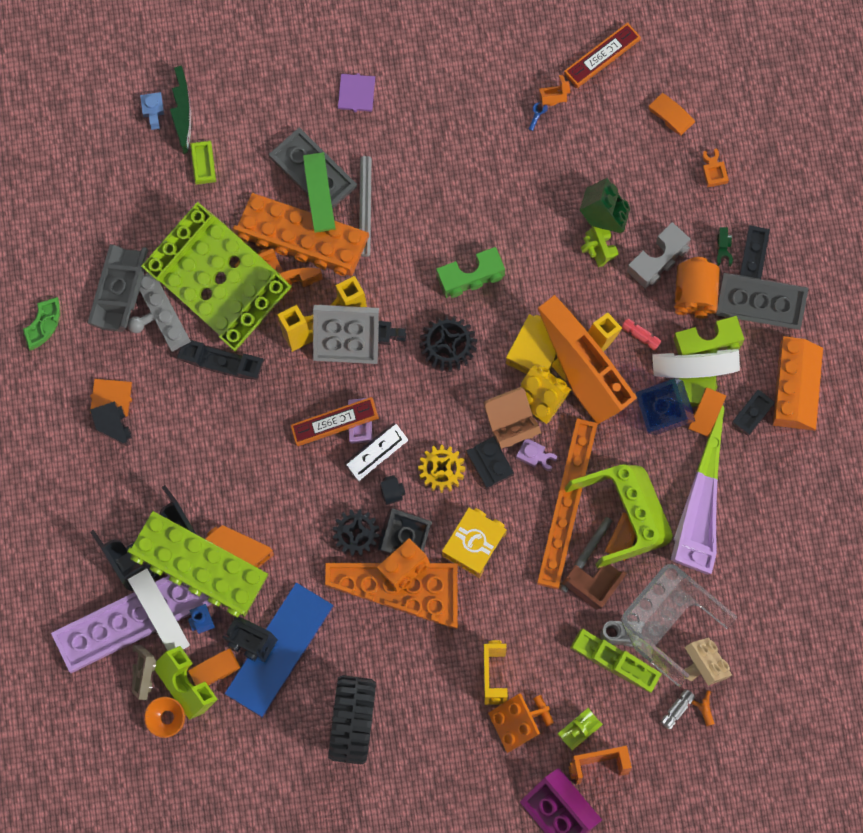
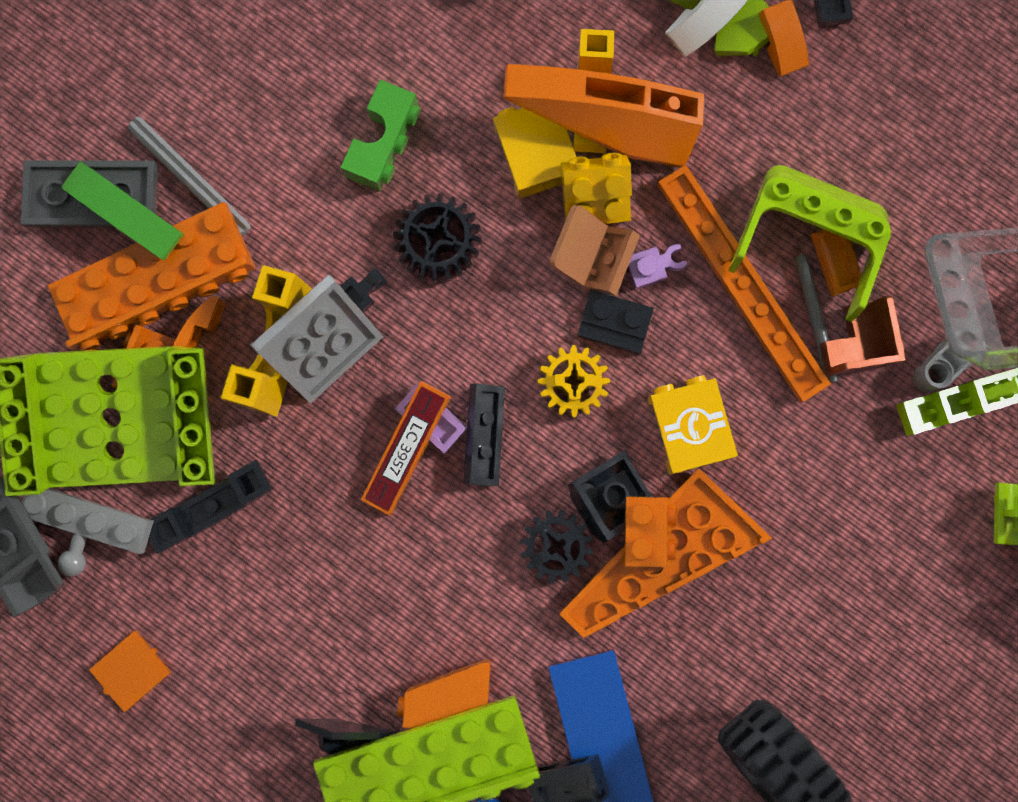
camera: 45 degrees left, 10 degrees up
(109, 422) = (160, 704): black slope -> none
(356, 92) = (48, 61): medium lavender piece -> none
(392, 490) = (545, 459): black plate -> none
(493, 696) = (890, 576): yellow panel -> none
(516, 723) = (941, 576): orange plate -> none
(641, 334) = (630, 23): coral axle -> none
(665, 406) = (742, 74): clear blue brick -> none
(697, 527) = (906, 175): lavender plate -> none

